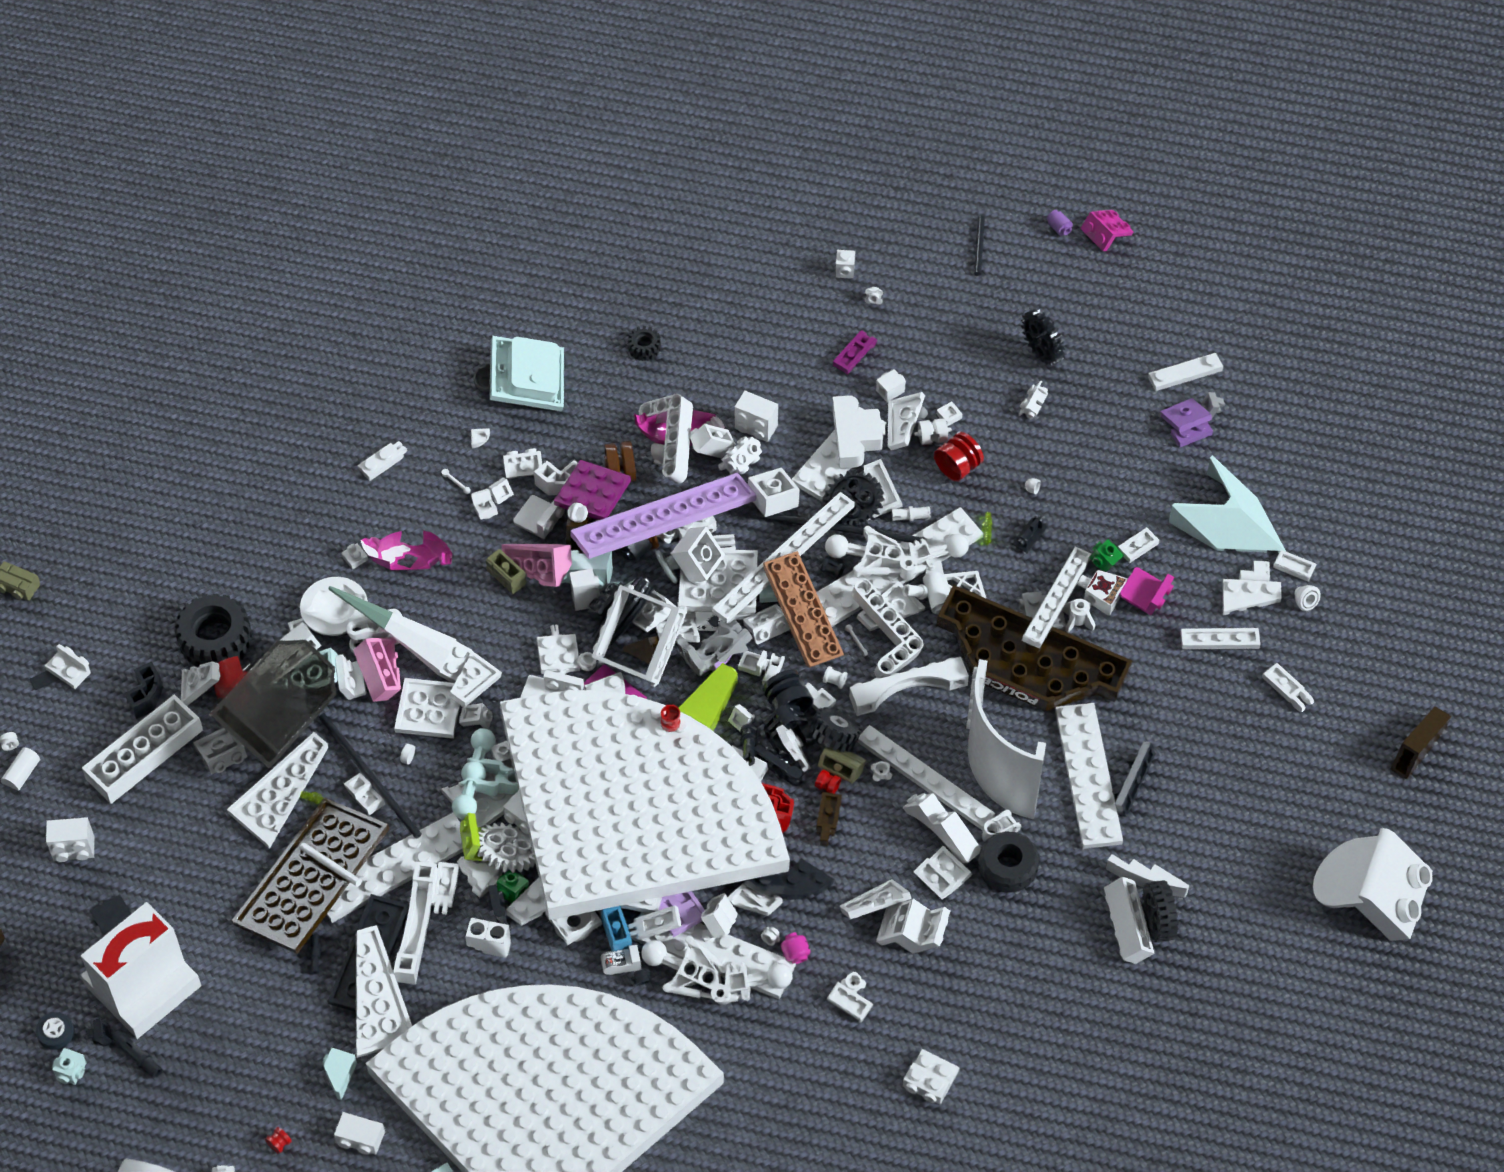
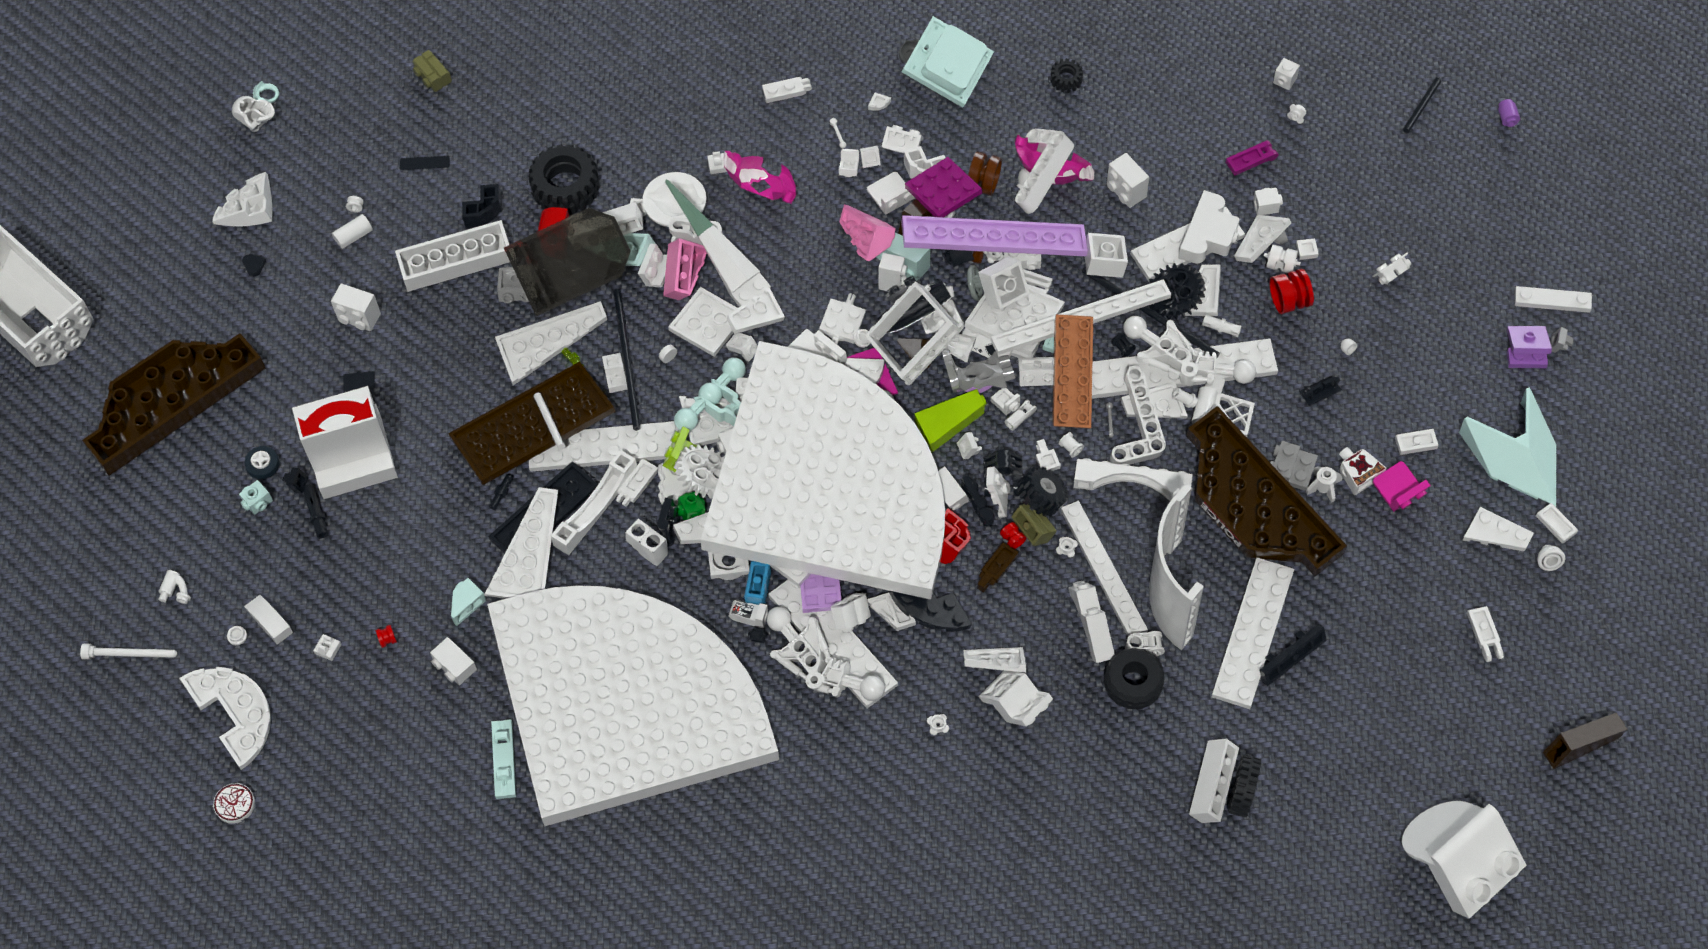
camera: 30 degrees right, 5 degrees up
(68, 666) = (434, 161): white bracket -> none
(198, 681) = (527, 217): white wing -> none
(506, 571) = (835, 229): olive brick -> none
(577, 512) = (918, 202): white tile -> none
(655, 923) = (791, 593): white hinge -> none
(670, 718) = (894, 418): red wheel -> none
(712, 440) = (1075, 186): white brick -> none
(741, 455) = (1093, 211): white brick -> none
(749, 741) = (961, 468): black pin -> none
(770, 935) = (888, 649): white plate -> none
(788, 689) = (1021, 438): black wheel -> none
(795, 948) = (903, 670): dark pink head -> none
(849, 1001) = (925, 739): white plate -> none
(930, 1077) = (959, 838): white plate -> none
(943, 873) = (1071, 662): white slope -> none
(987, 528) = (1284, 368): clear neon green piece -> none
(1043, 337) = (1429, 212): black gear -> none
(1056, 597) = (1309, 457): white tile -> none
(1104, 227) = (1549, 133): dark pink bracket -> none
(1105, 555) = (1379, 438): green brick -> none
(1141, 875) = (1248, 744): white slope -> none
(1220, 638) = (1446, 560): white plate -> none
(1259, 572) = (1518, 516): white piece -> none

